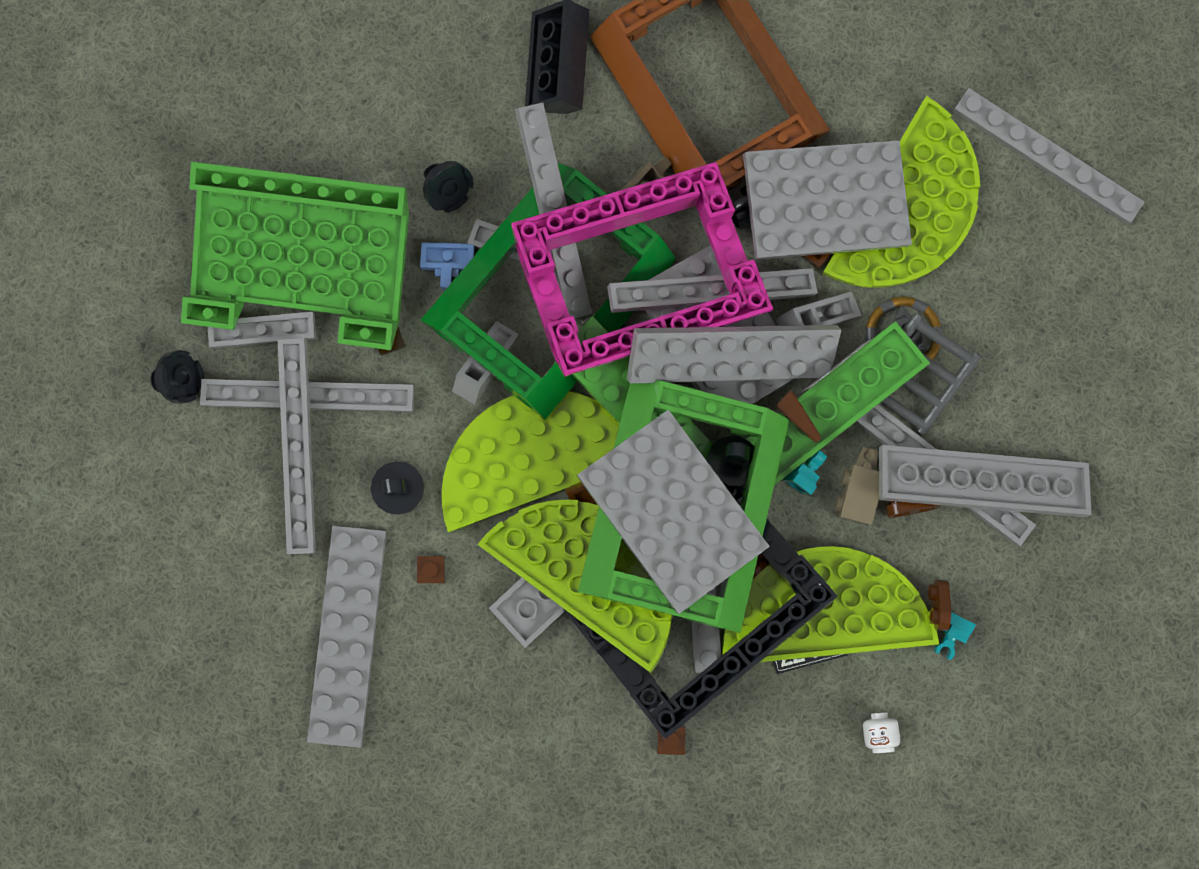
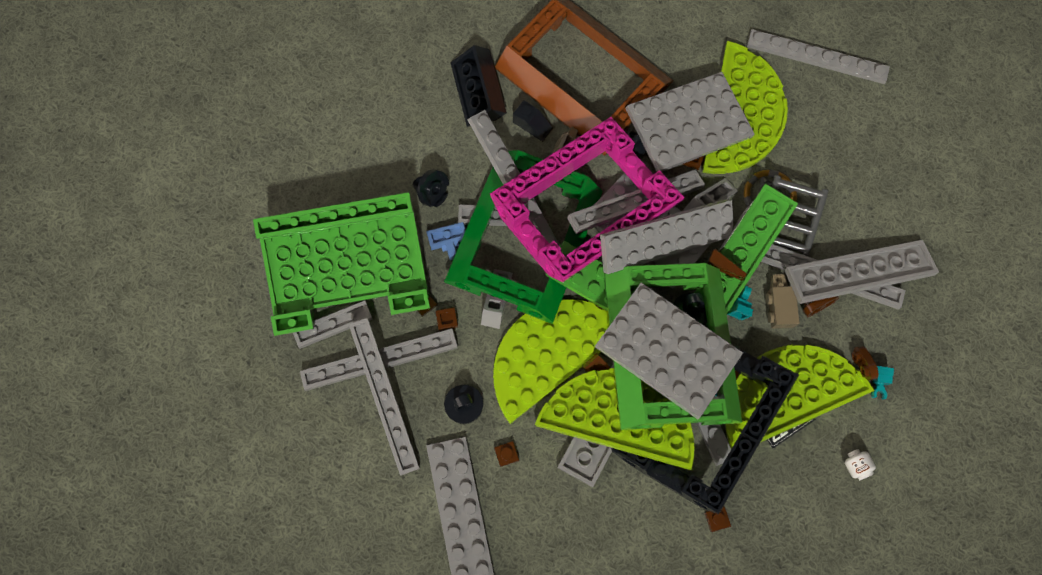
camera: 25 degrees left, 10 degrees down
(177, 377) = (282, 374): black tile -> none
(410, 369) = (446, 319): none -> reddish brown plate
(614, 131) = (532, 121): none -> black slope

